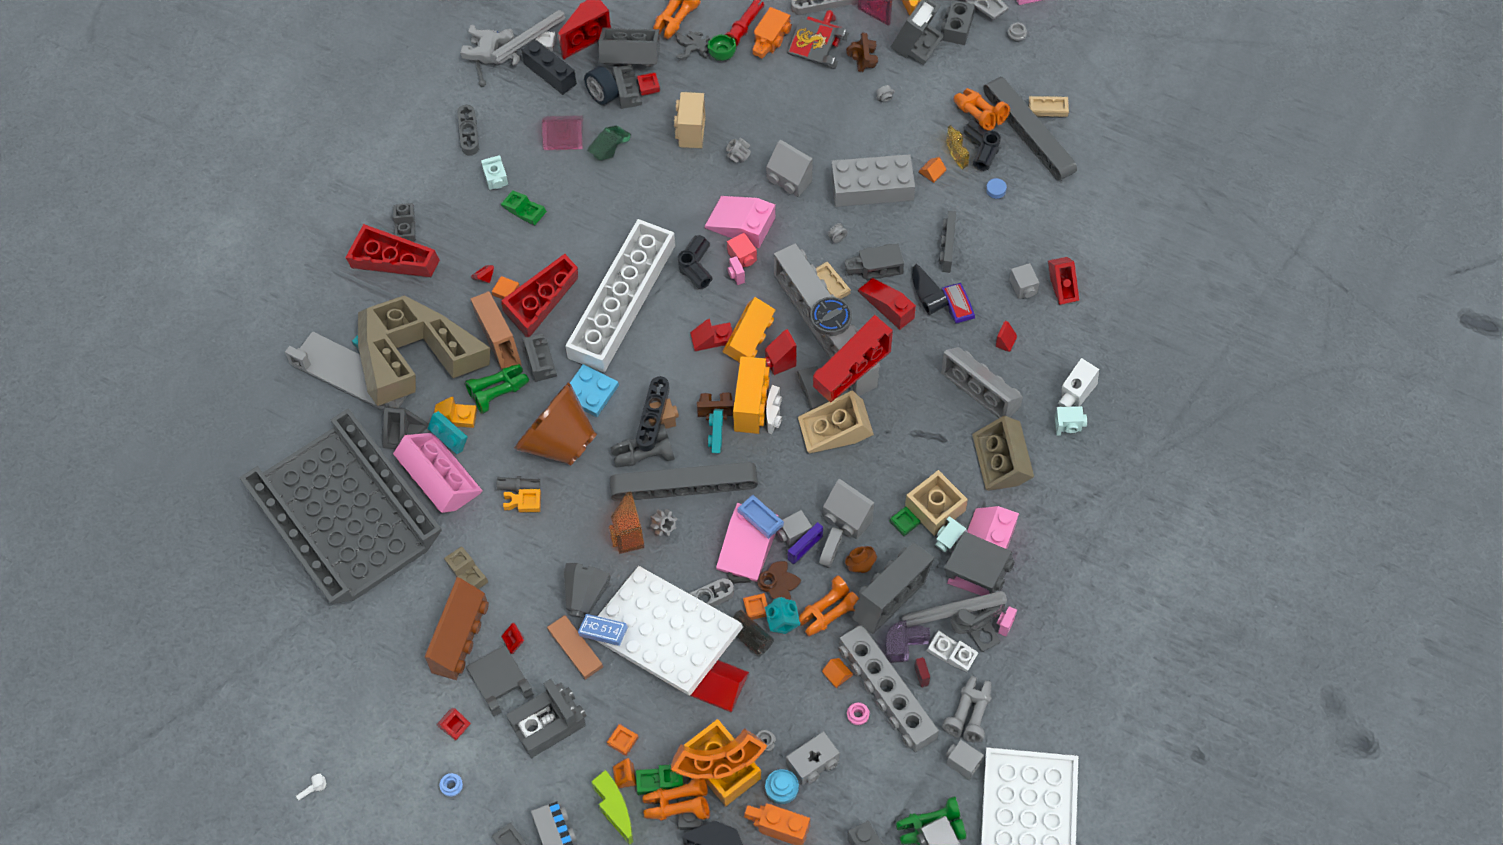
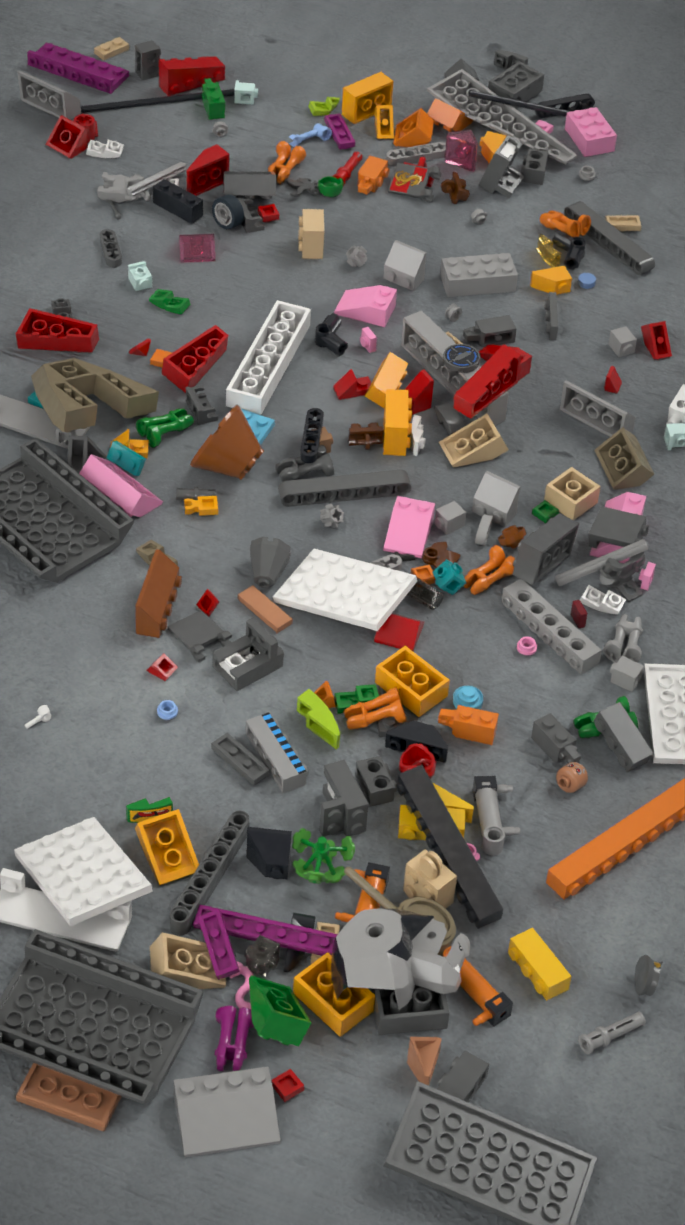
camera: 10 degrees left, 15 degrees down
(496, 330) = (157, 377): nougat slope -> none
(602, 629) = (290, 589): medium blue tile -> none
(607, 141) = (238, 253): clear green slope -> none
(622, 740) = (318, 673): orange tile -> none
(626, 527) = (301, 517): clear orange slope -> none
(715, 439) = (369, 440): teal plate -> none
(719, 761) = (416, 671): orange brick -> none
(743, 249) = (372, 321): coral brick -> none
(760, 516) = (420, 501): medium blue tile -> none
(767, 735) = (447, 667): light grey plate -> none
(805, 543) = (461, 527): dark purple tile -> none
(817, 748) = (493, 677): light grey brick -> none
(837, 672) = (502, 618): orange slope -> none
(900, 638) = (558, 590): clear purple brick -> none
(928, 292) = (542, 352): black piece -> none
(933, 169) = (529, 266): orange slope -> none
(949, 535) = (587, 516): light aqua brick -> none
(956, 189) = (552, 280): none -> light orange slope
(958, 302) = (567, 358): slope -> none

